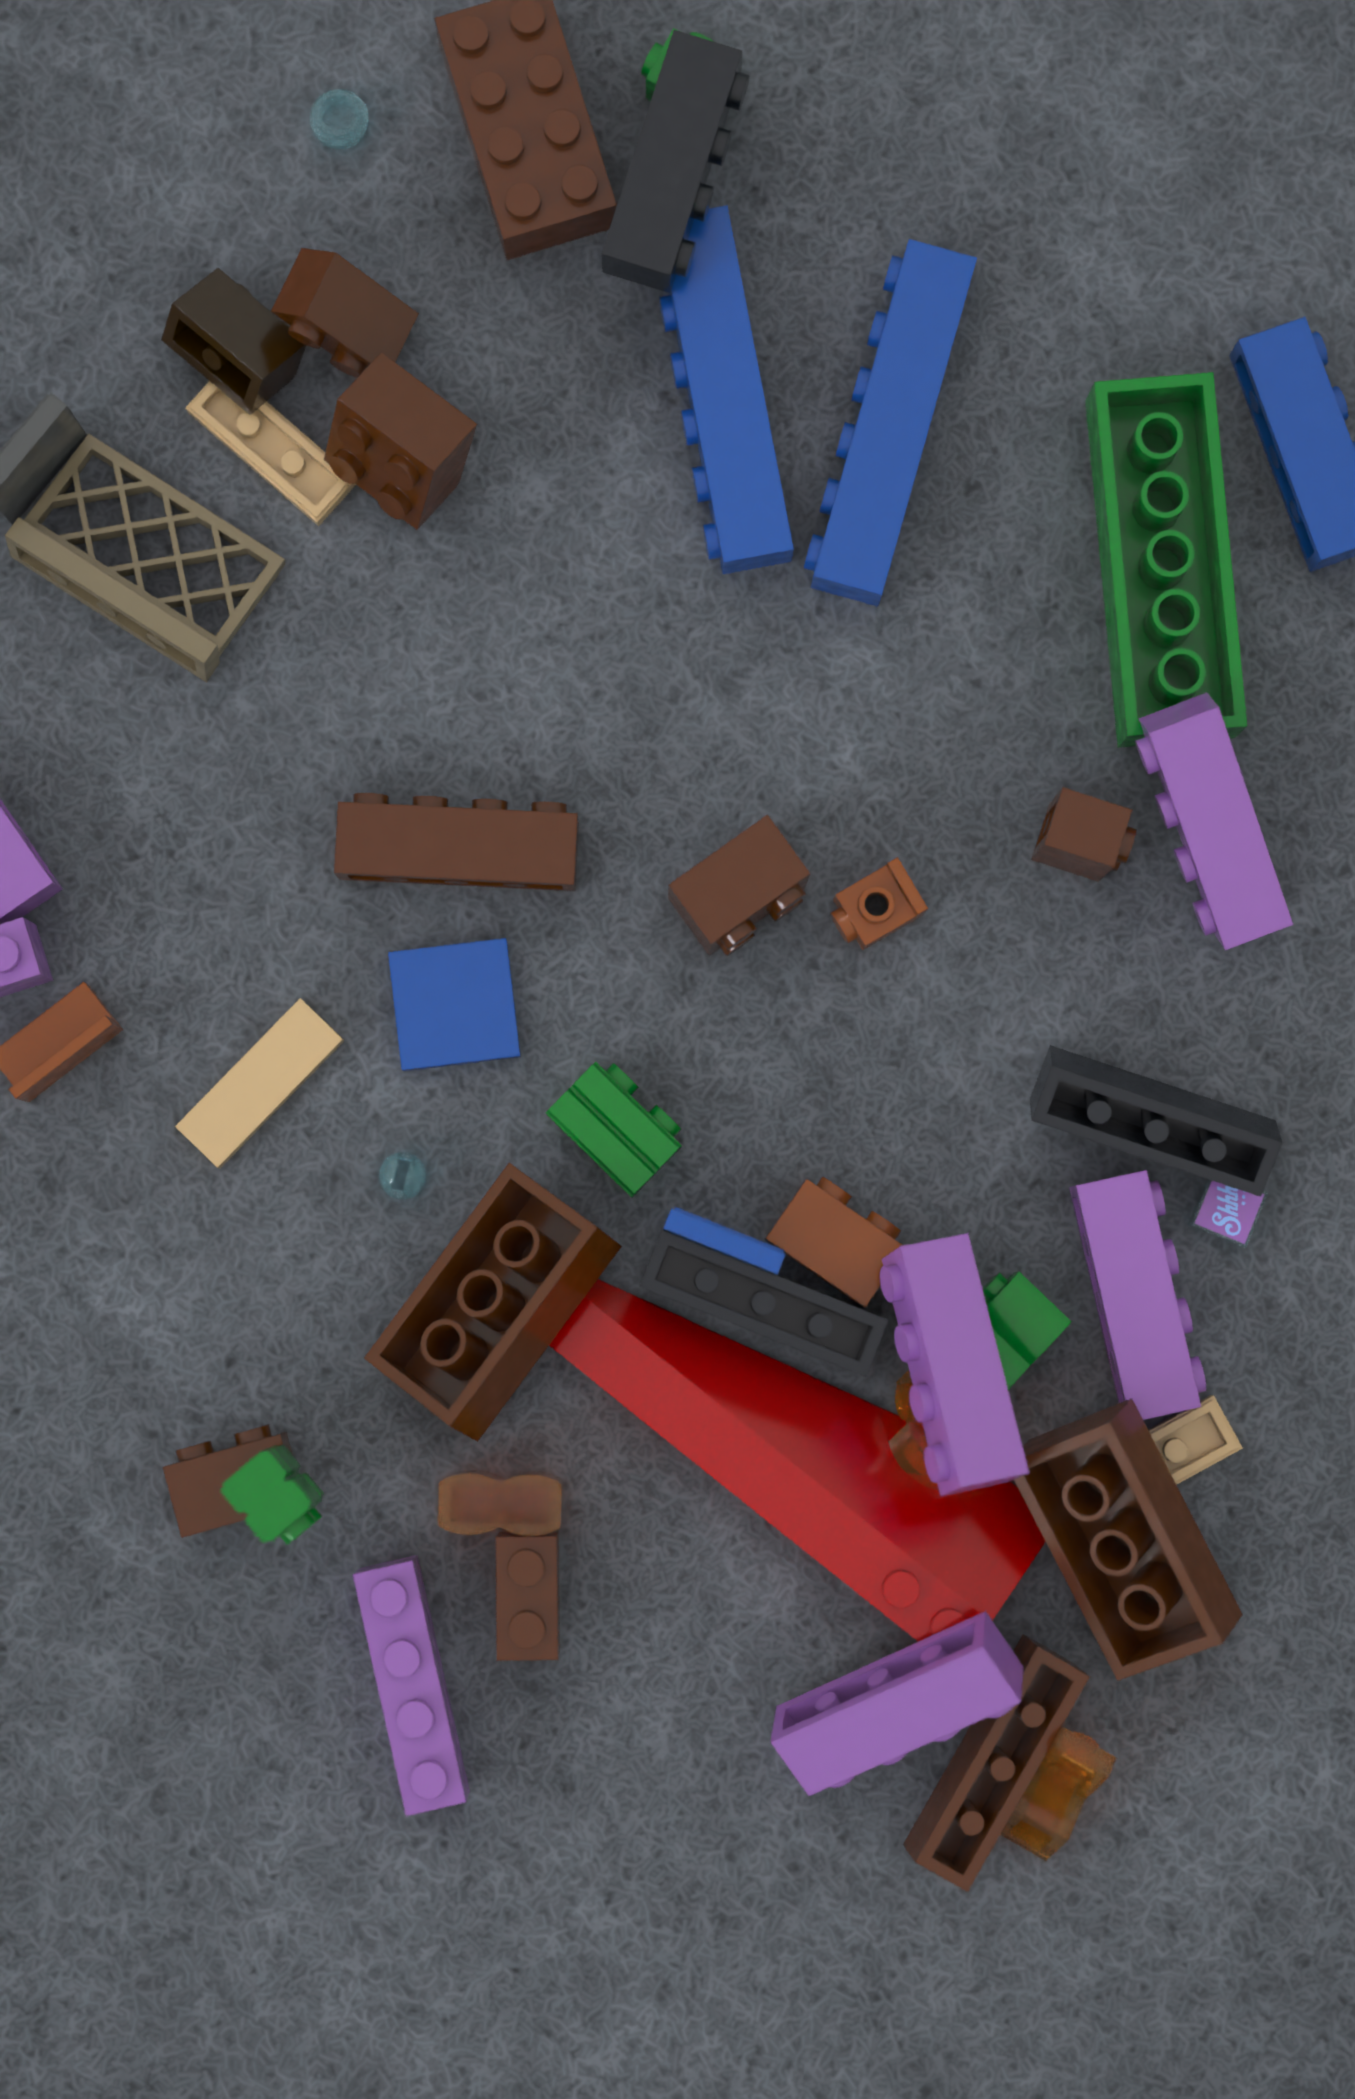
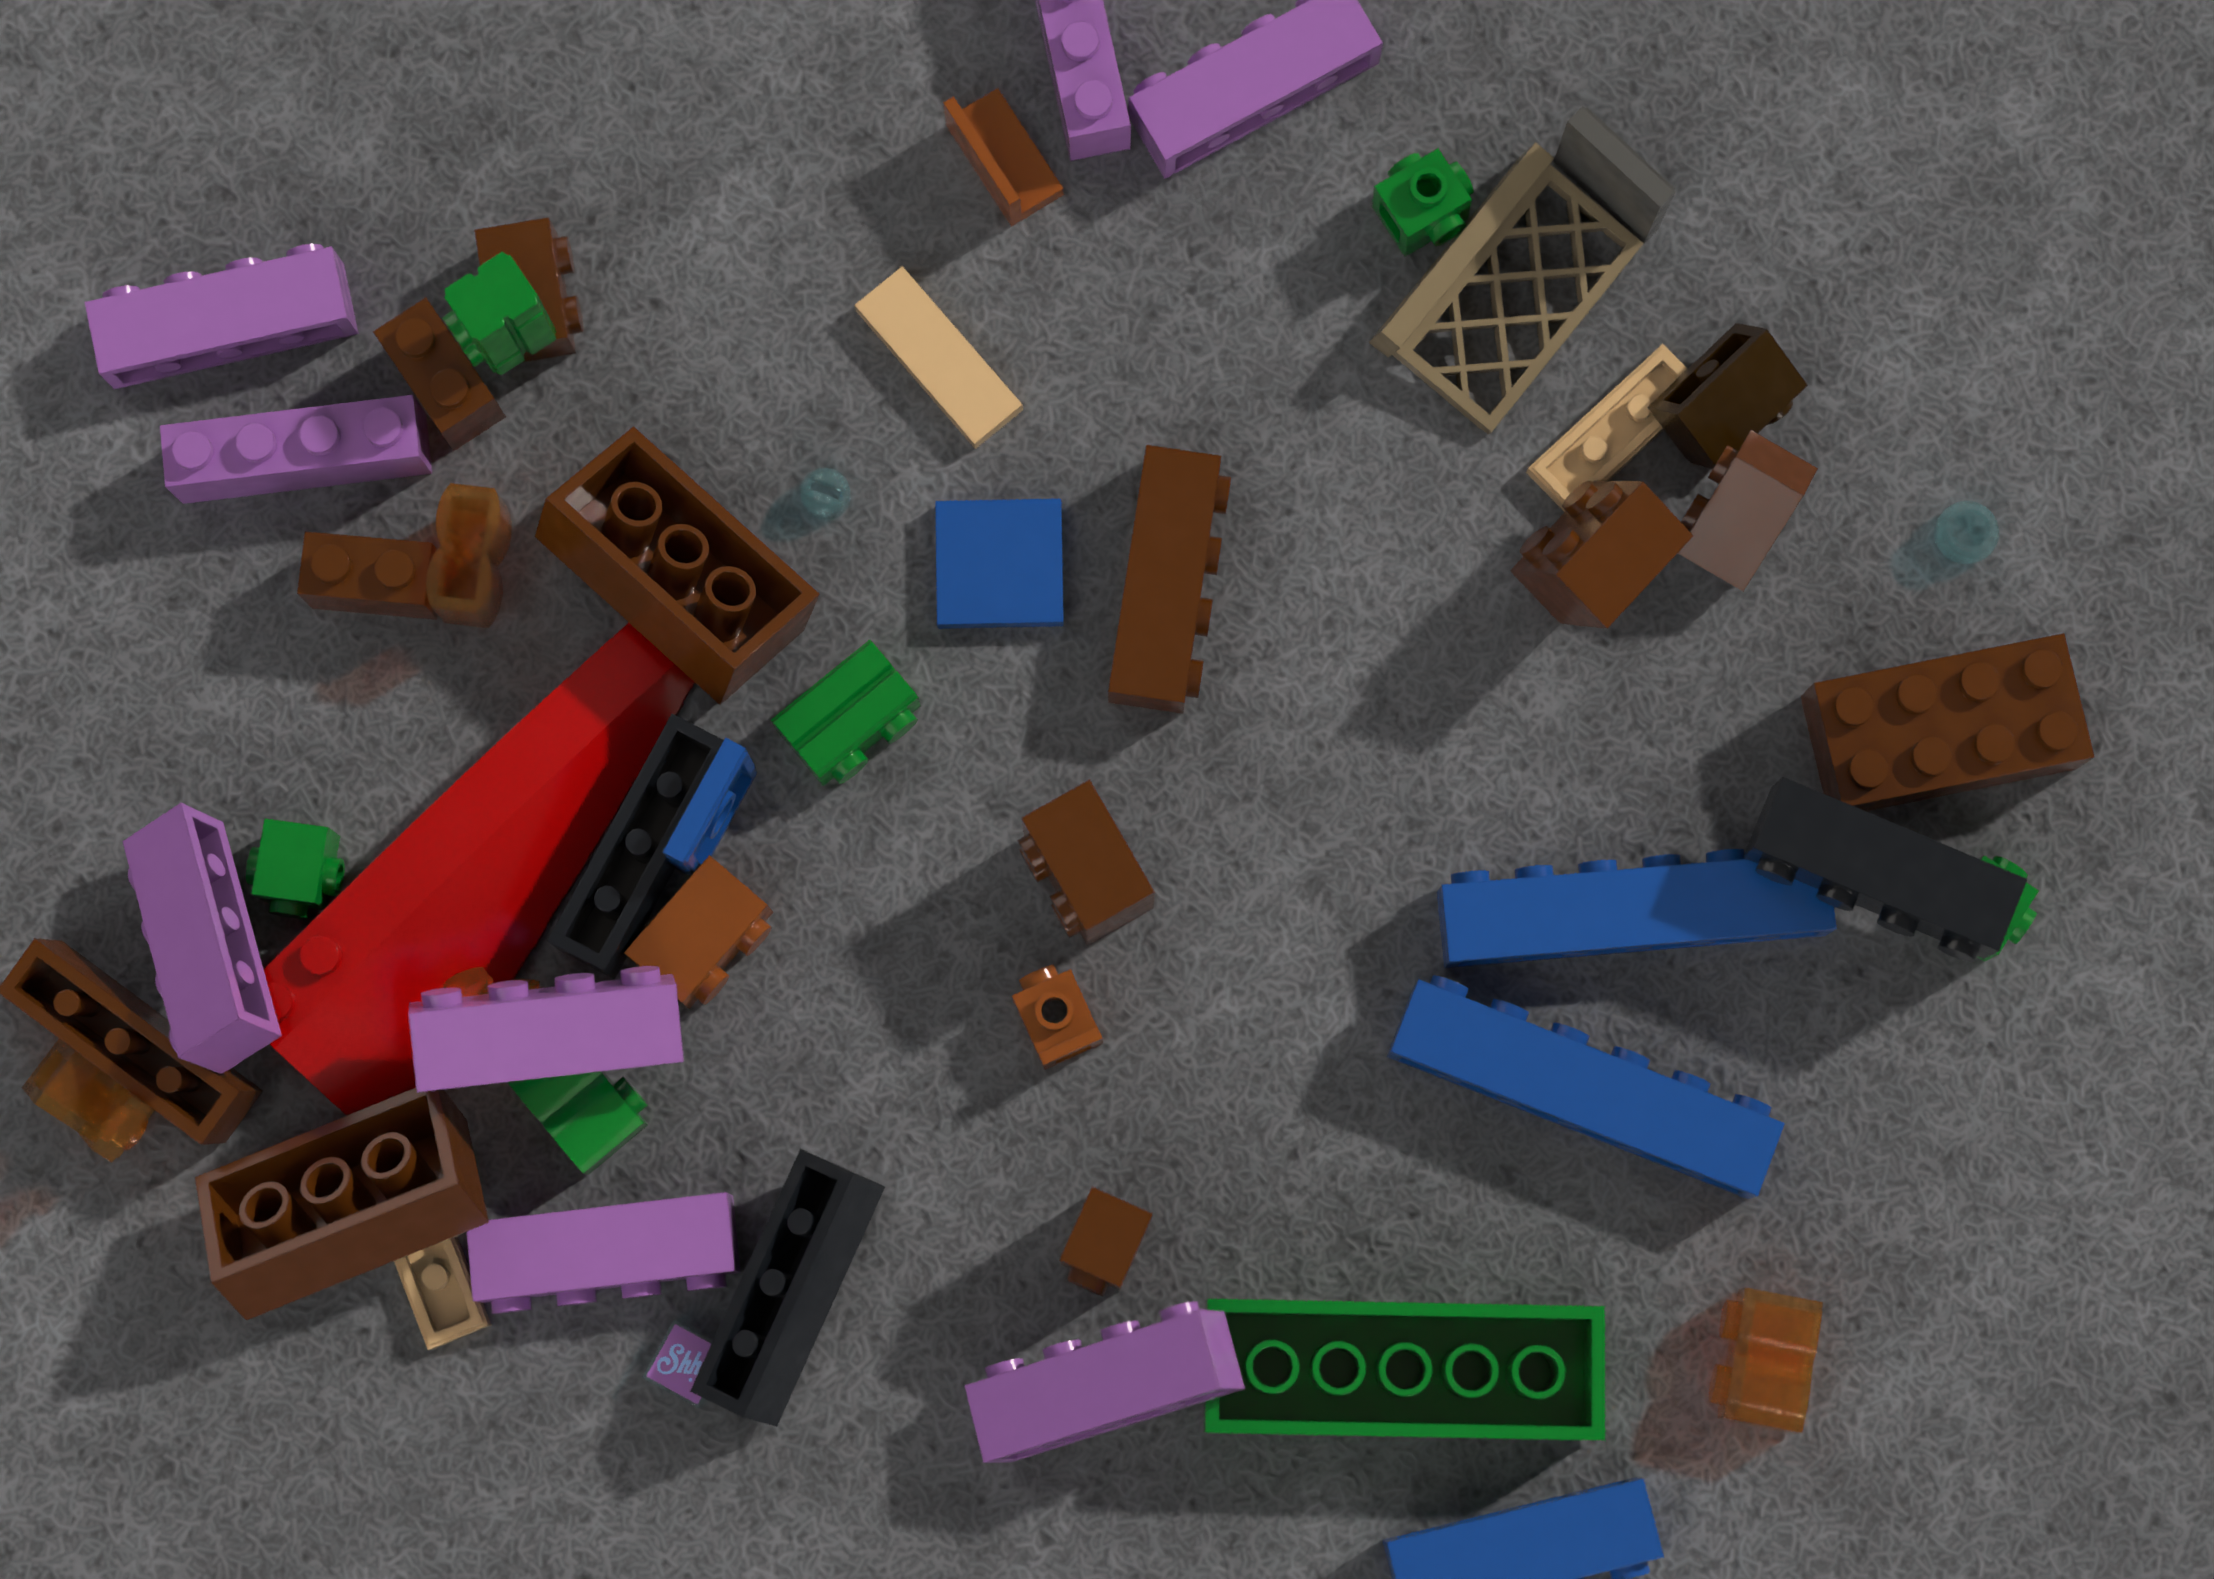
camera: 100 degrees right, 5 degrees down
(83, 651) = (1423, 201): none -> green brick
(285, 1776) = (221, 316): none -> medium lavender brick
(324, 1555) = (439, 374): none -> reddish brown brick
(814, 1630) = (295, 867): none -> green brick
(1117, 243) = (1767, 1360): none -> clear orange brick

